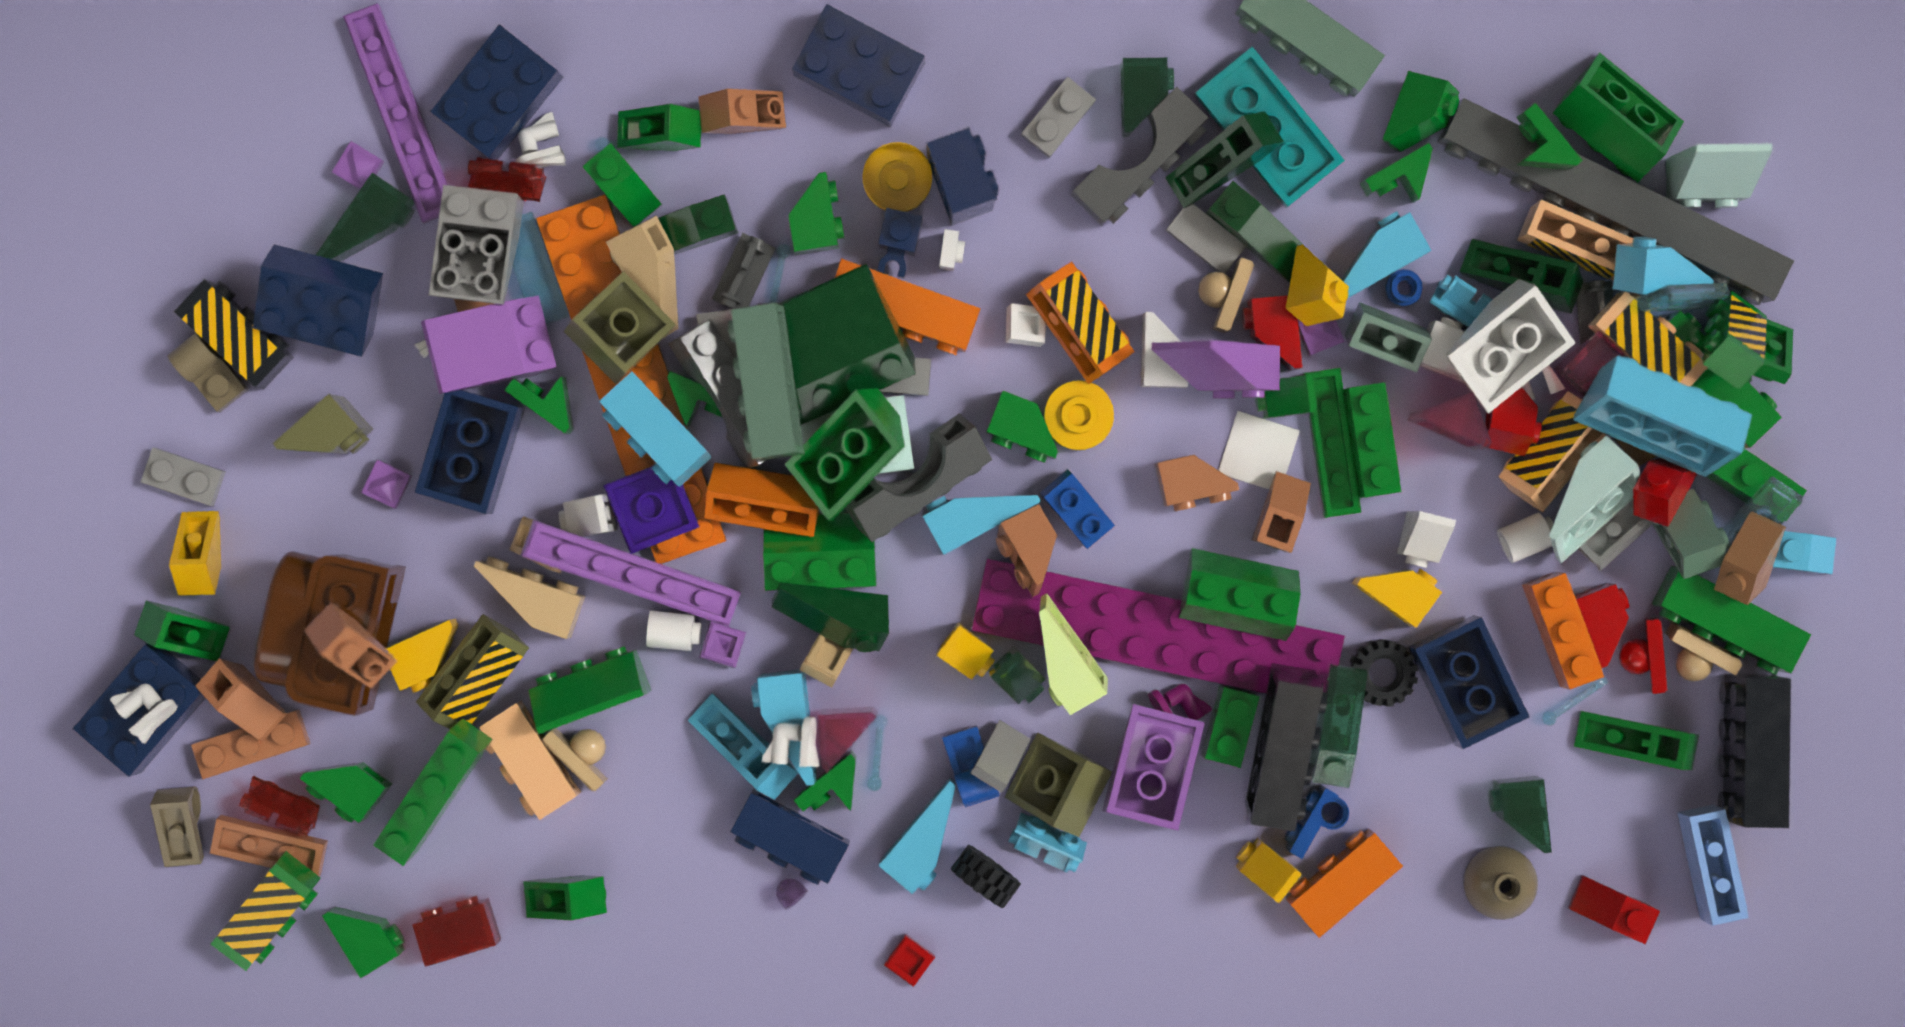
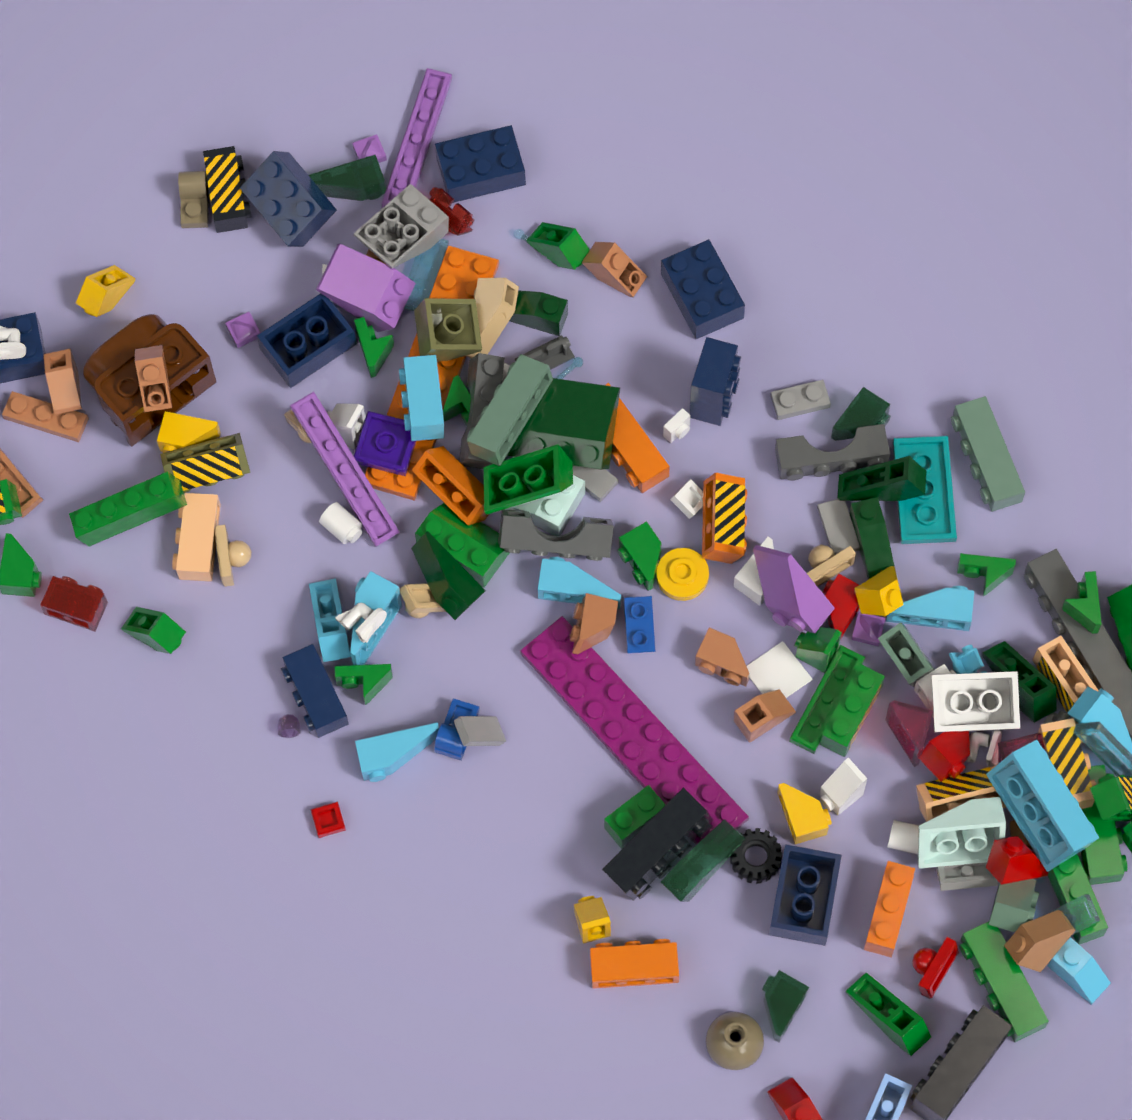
camera: 35 degrees right, 20 degrees down
(181, 631) = (60, 324): green slope -> none
(183, 476) = (131, 246): light grey plate -> none
(295, 812) = (36, 461): clear red hinge -> none
(327, 428) = (233, 270): olive slope -> none
(350, 787) = (82, 477): green slope -> none
(537, 602) = (278, 456): tan slope -> none
(541, 130) = (482, 217): white piece -> none
(587, 689) = (265, 521): green slope -> none
(622, 185) = (513, 256): green slope -> none
(722, 644) = (364, 553): medium lavender tile -> none
(813, 218) = (609, 353): green slope -> none
(840, 730) = (396, 646): clear pink slope -> none
(875, 782) = (391, 699): clear light blue hinge -> none
(897, 177) = (675, 366): yellow piece -> none
(899, 237) = (652, 397): dark blue brick -> none
(966, 652) = (506, 654): yellow slope -> none
(985, 876) = (414, 795): black tyre -> none
(1017, 676) = (526, 686): clear green slope -> none
(1058, 785) = (502, 778): olive slope -> none
(1063, 848) = (464, 799): medium azure hinge -> none
(1071, 669) = (563, 706): yellowish green slope -> none
(1154, 767) = (567, 805): medium lavender slope -> none
(1192, 705) = (621, 791): magenta piece -> none
(1241, 594) = (699, 742): green slope -> none
(1306, 830) = (631, 916): blue plate -> none
(1411, 279) = (944, 632): blue plate -> none
(1420, 110) = (1024, 539): green slope -> none
(1550, 718) = (842, 962): clear light blue hinge -> none
(1604, 617) = (919, 920): red slope -> none
(1699, 655) = (965, 989): tan tile -> none

